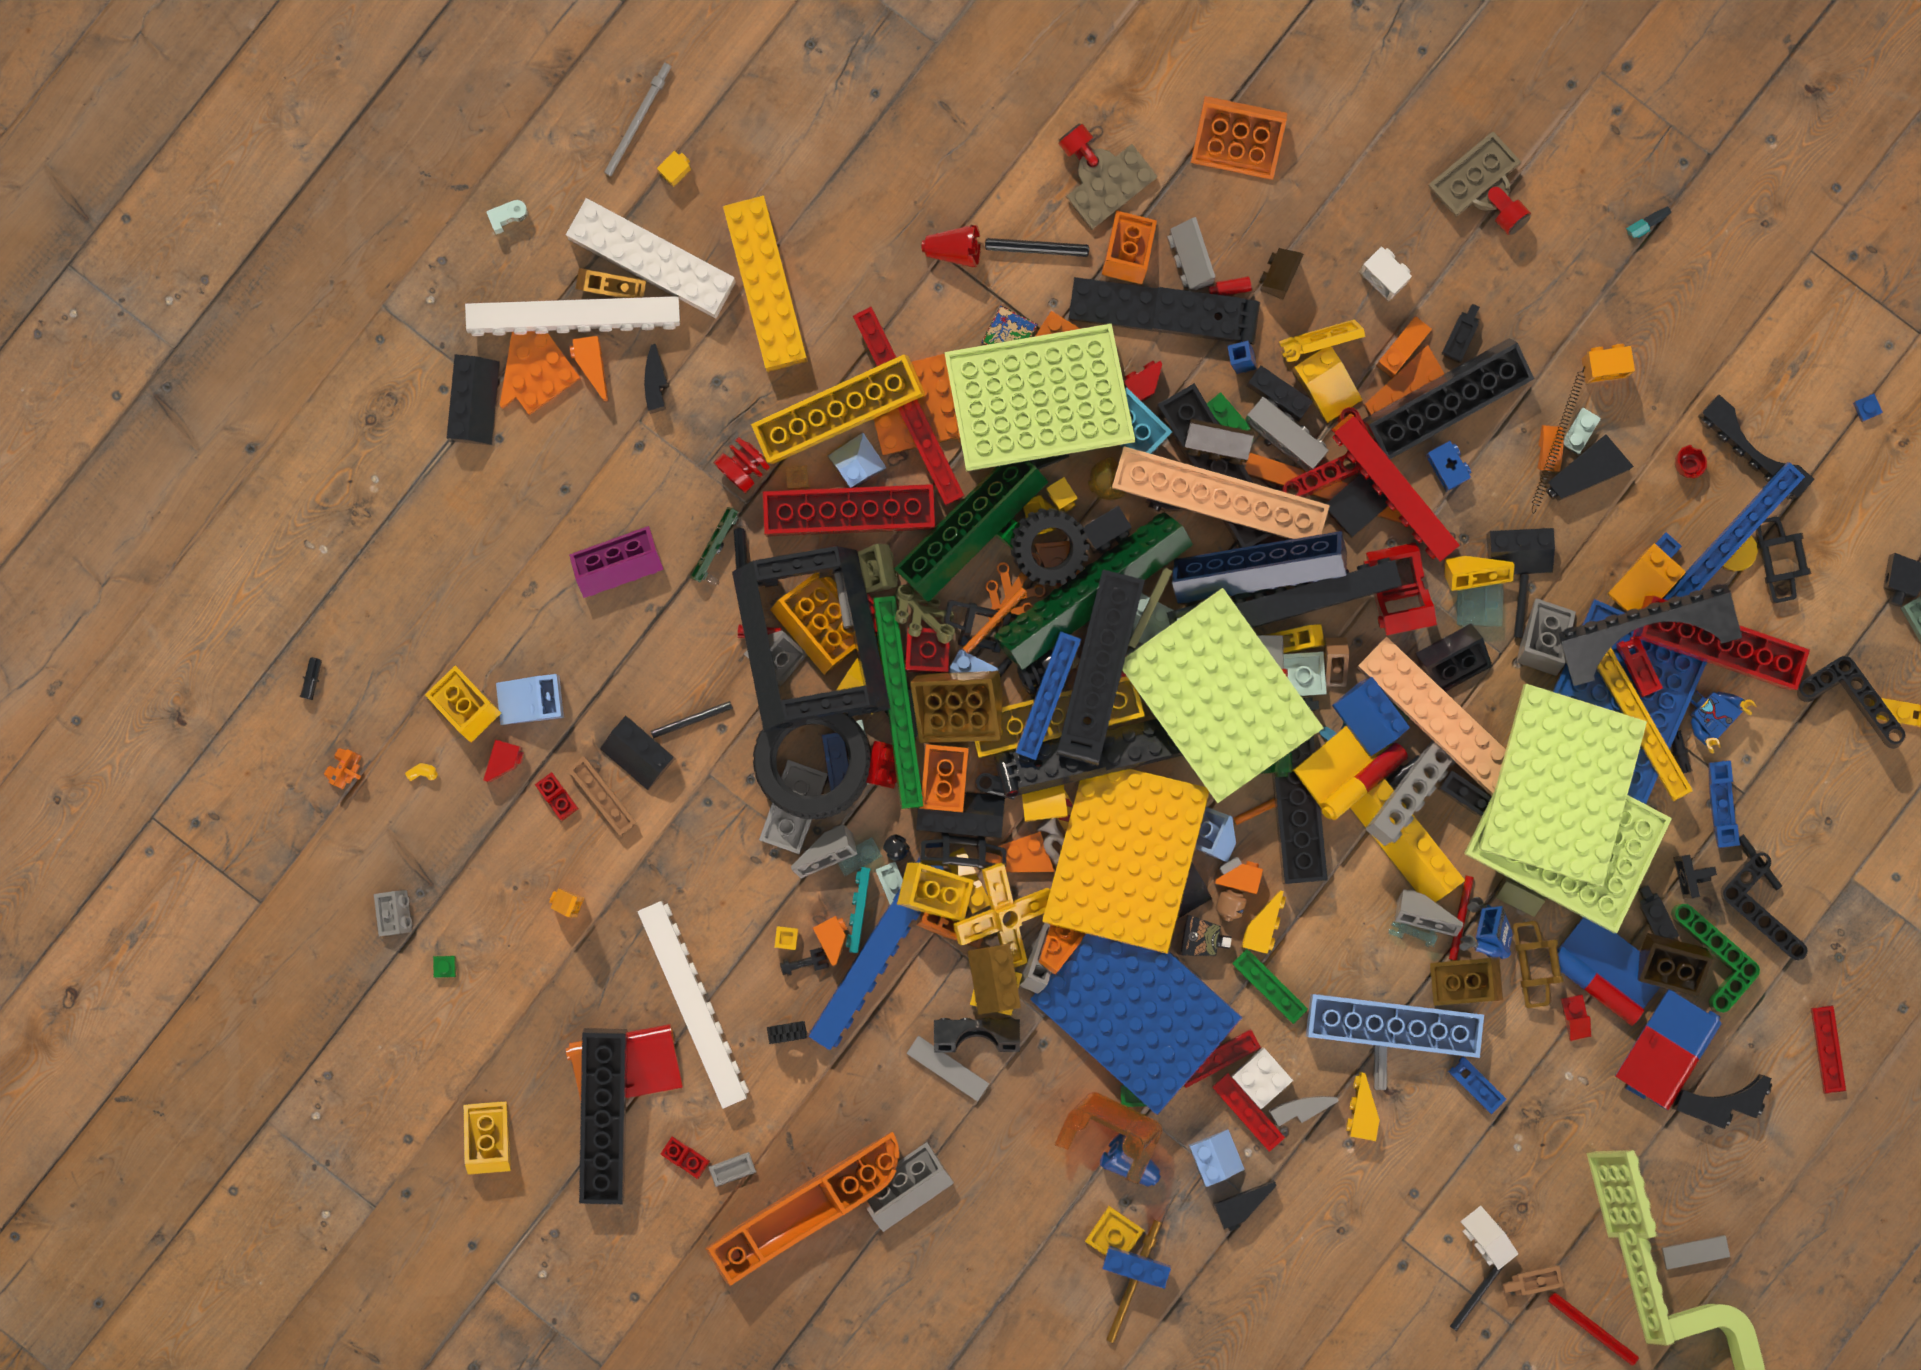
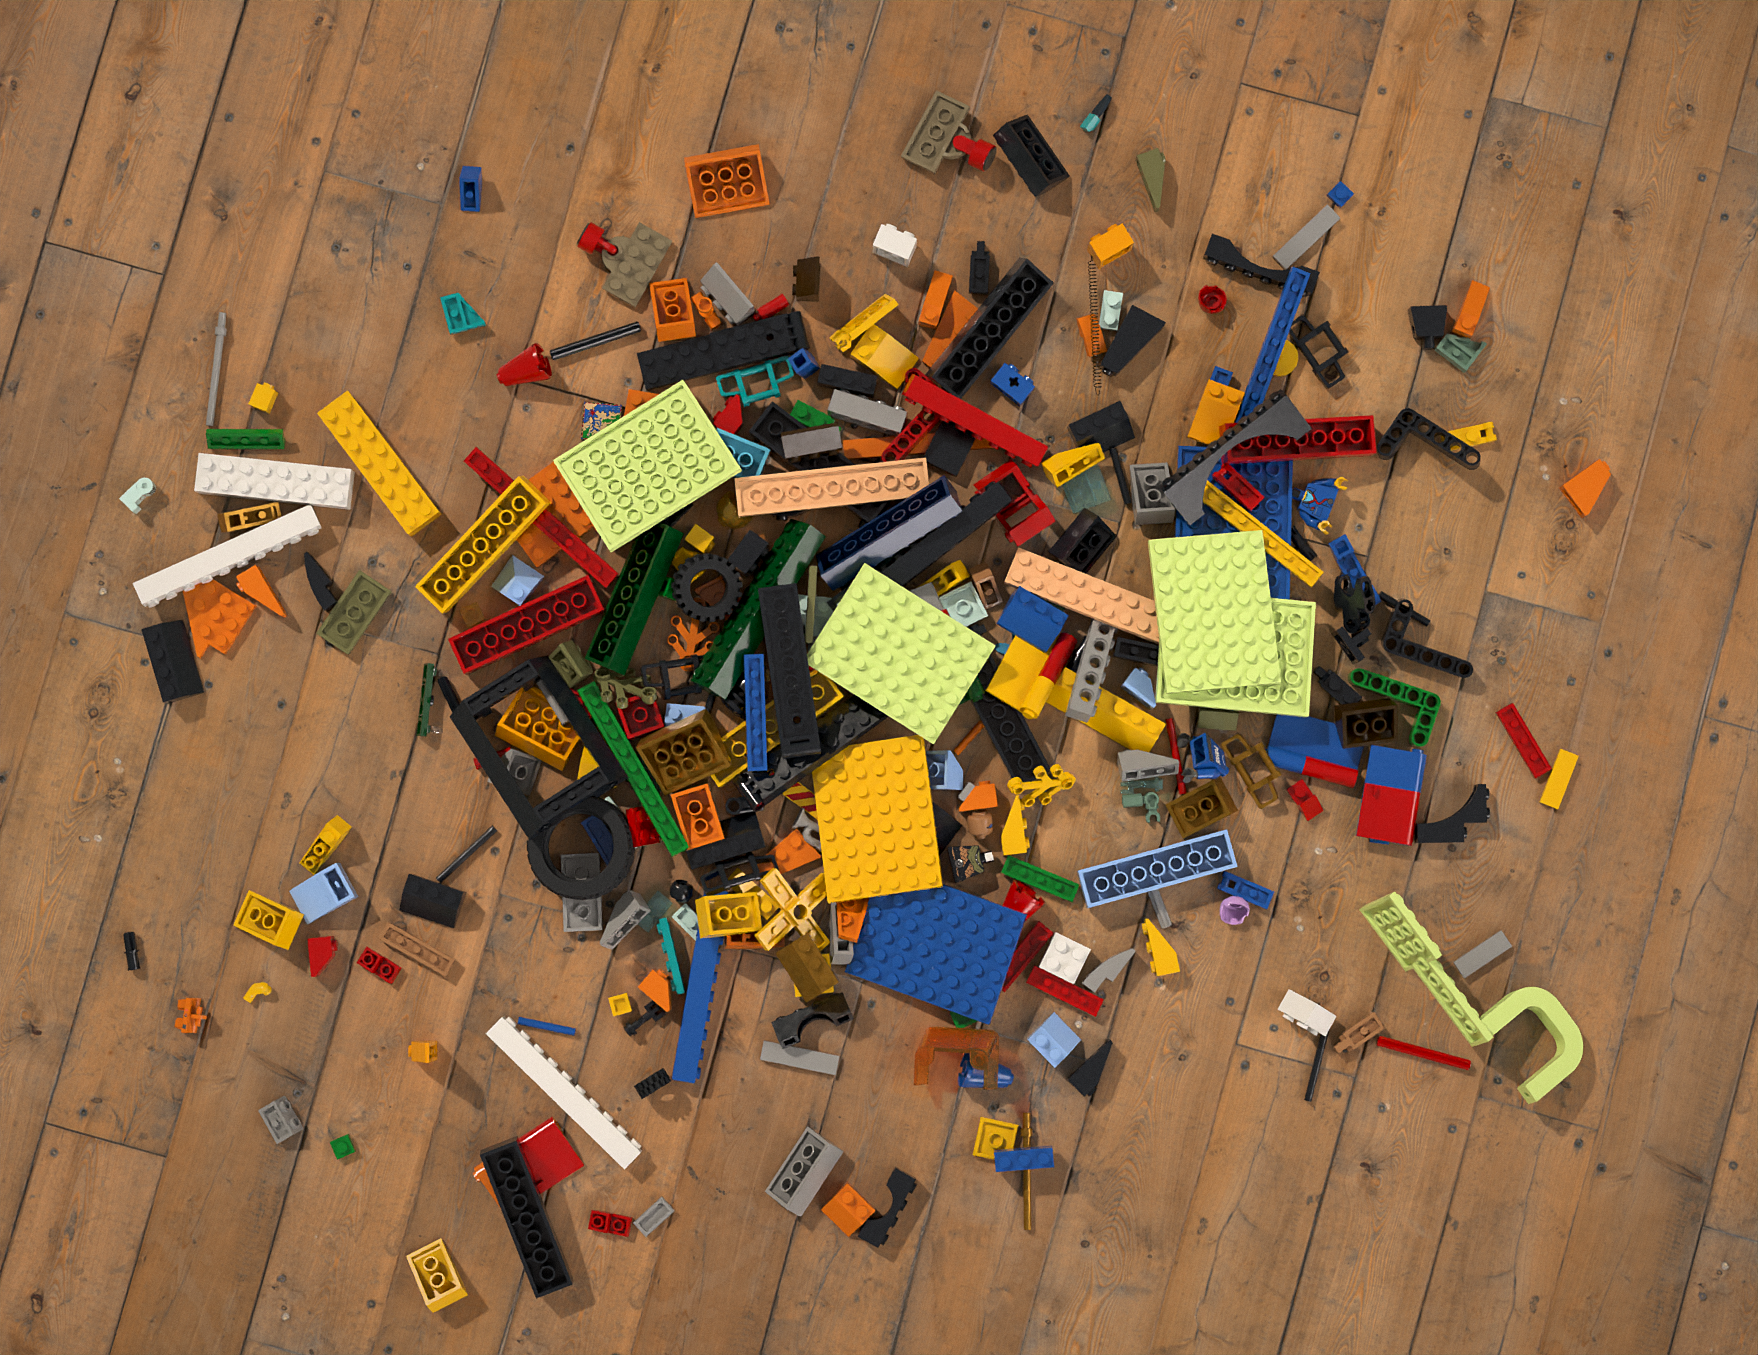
camera: 25 degrees left, 0 degrees up
(552, 650) = (325, 844): none -> yellow slope
(616, 562) = (348, 748): magenta slope -> none
(638, 202) = (245, 438): none -> green plate
(677, 425) = (354, 612): none -> olive plate
(702, 929) = (546, 1026): none -> blue bar
(742, 464) = (421, 623): red wheel -> none
(805, 1210) = (728, 1225): orange slope -> none
(909, 164) = (460, 314): none -> teal wing
(934, 1244) = (848, 1209): none -> orange slope
(954, 1276) = (875, 1229): none -> black arch
(973, 39) = (470, 188): none -> blue slope
(984, 631) = (686, 667): orange bar -> none
(1045, 804) = (790, 803): yellow slope -> none
(1164, 258) = (706, 310): none -> orange bar
(1187, 373) = (753, 370): none -> teal bar
(1243, 1000) = (1023, 899): none -> red cone
(1335, 896) = (1064, 781): none -> yellow plant
(1416, 950) = (1150, 800): none -> sand green bar
(1453, 832) = (1140, 687): none -> light blue slope
(1457, 1101) = (1234, 910): none -> lavender hair
(1563, 238) = (1030, 155): none -> black slope
(1682, 304) = (1152, 171): none -> olive slope
(1711, 837) = (1355, 602): none -> black piece
(1814, 437) = (1306, 237): none -> light grey tile
(1849, 1104) = (1558, 779): none -> yellow tile

